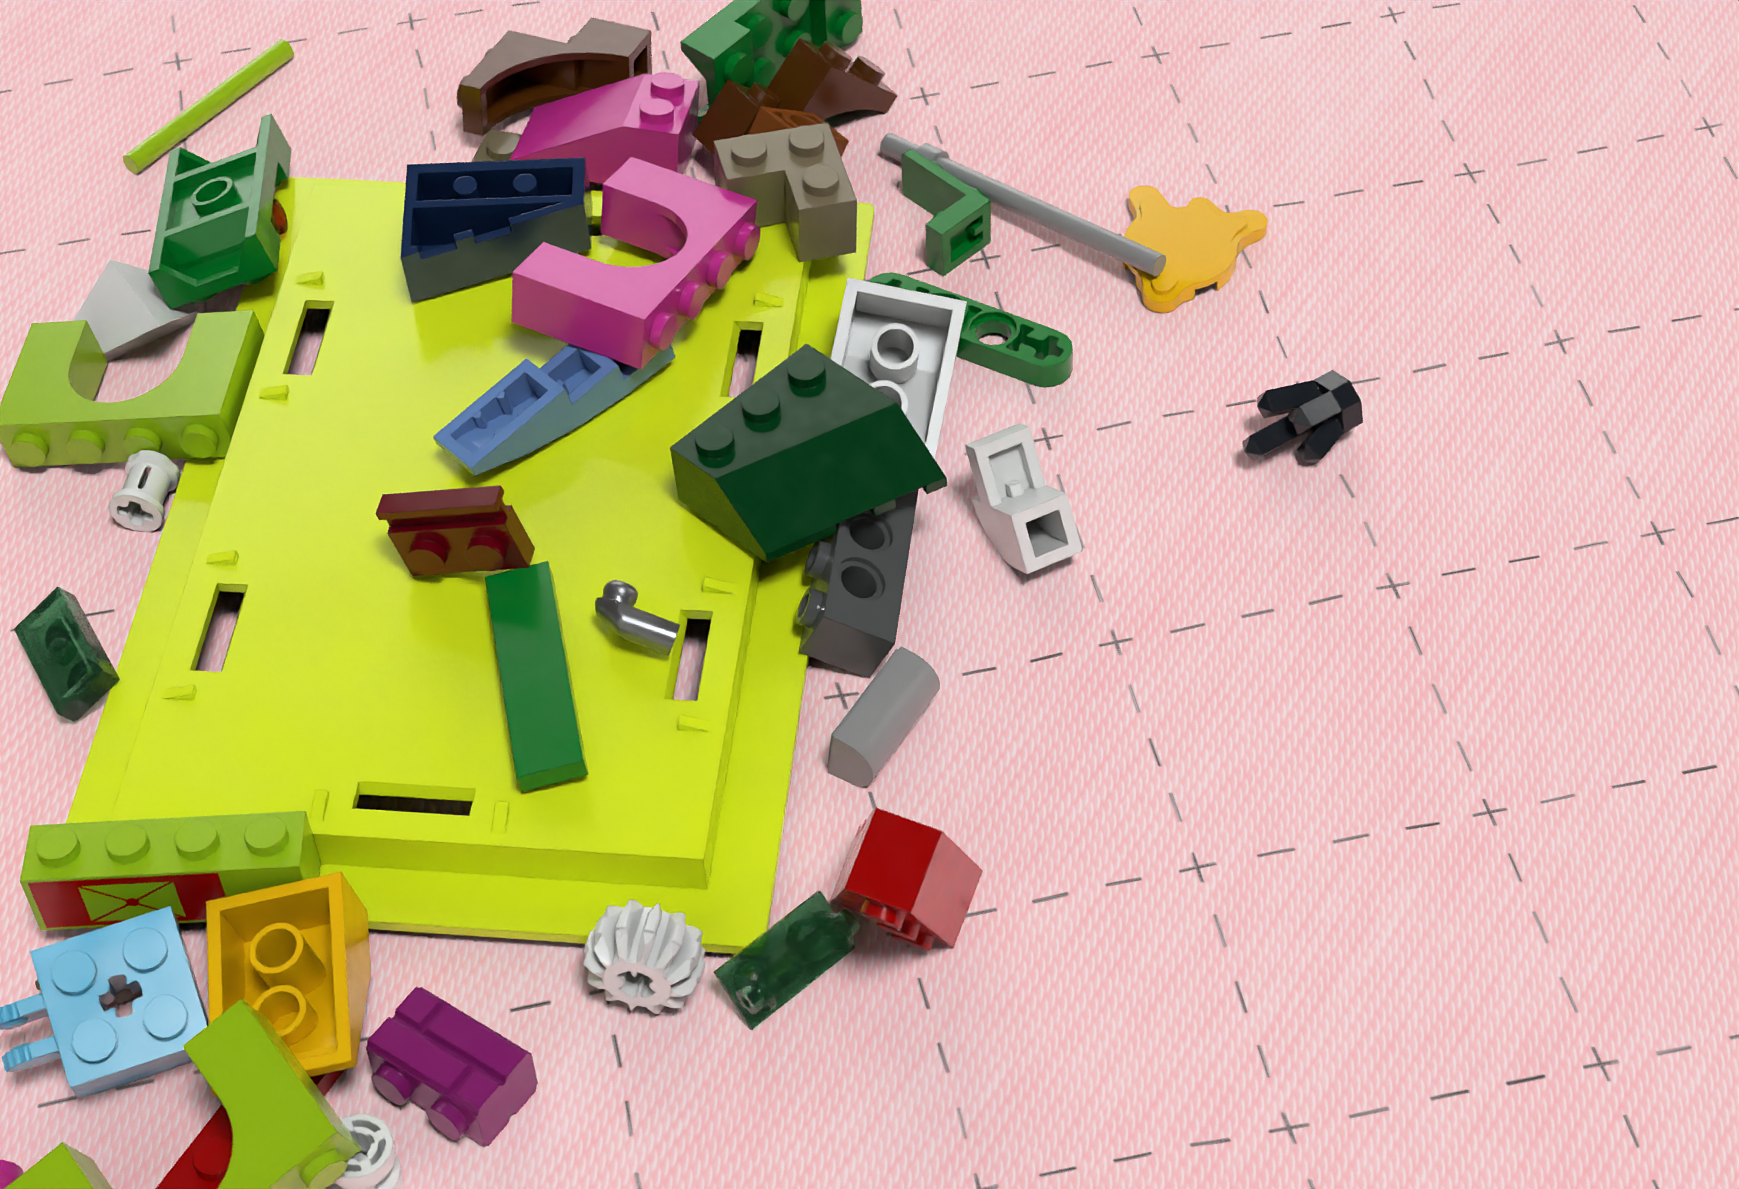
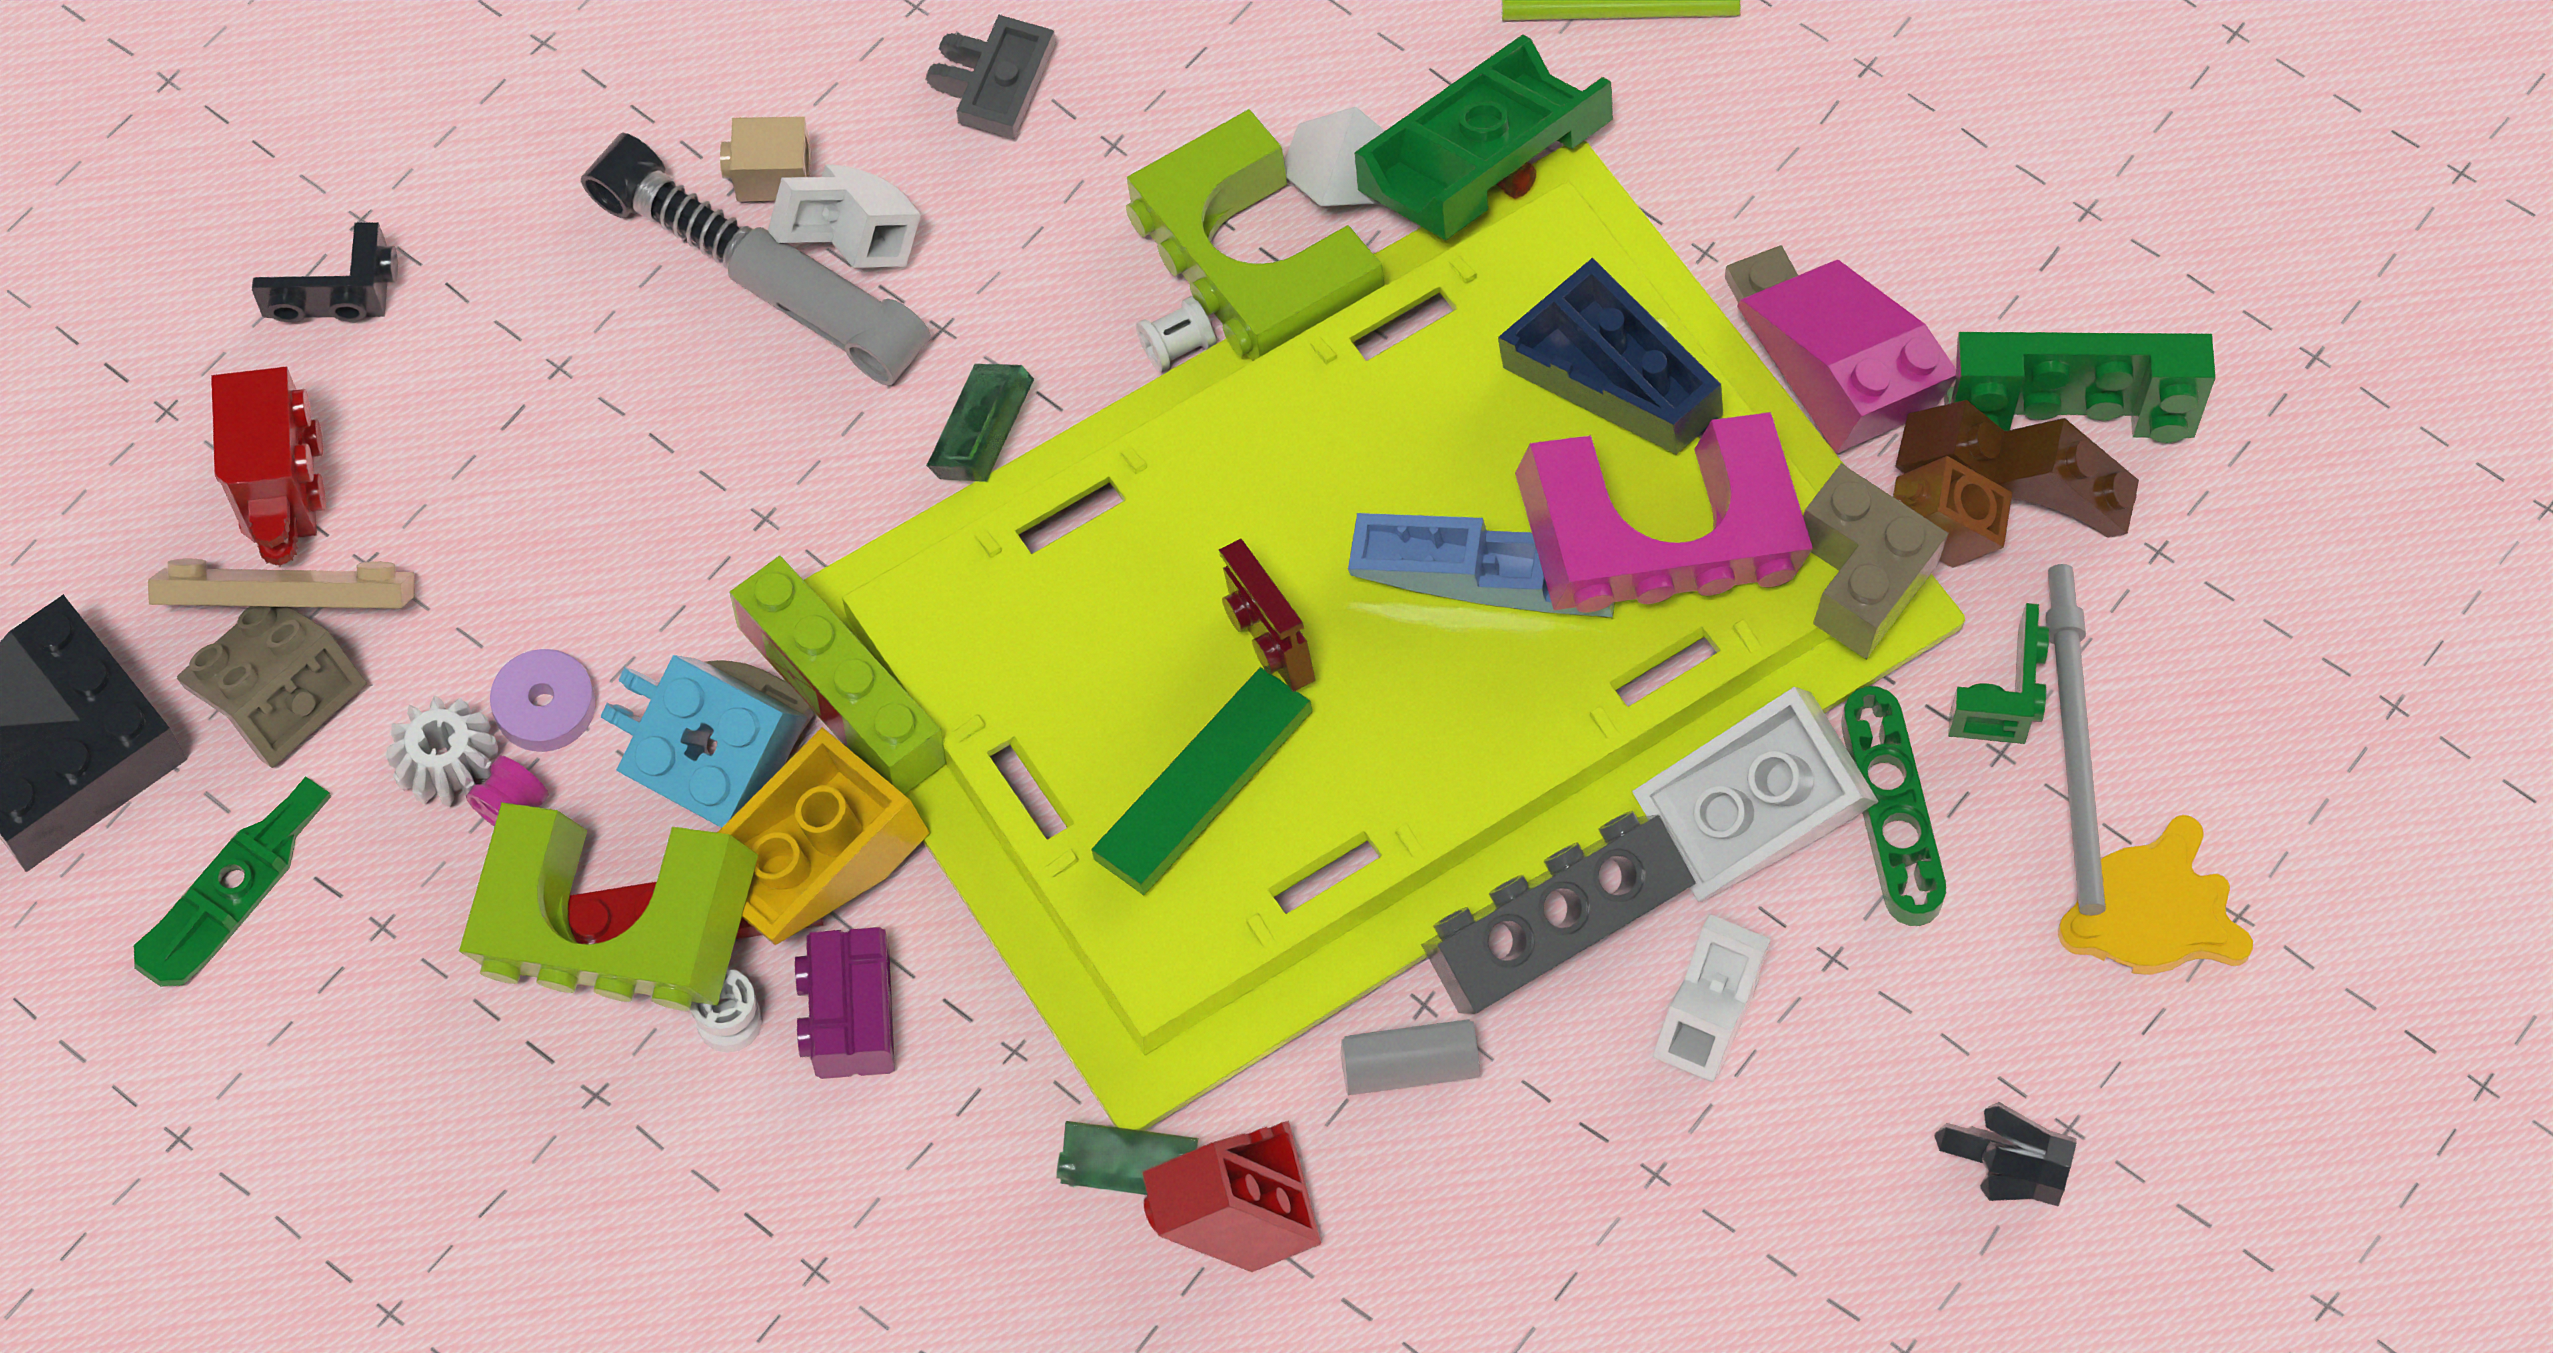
camera: 50 degrees right, 15 degrees up
(535, 70) = (1859, 217): reddish brown arch -> none
(632, 624) = (1301, 806): flat silver arm -> none
(644, 956) = (1036, 1062): white gear -> none
(800, 457) = (1566, 805): dark green wedge -> none

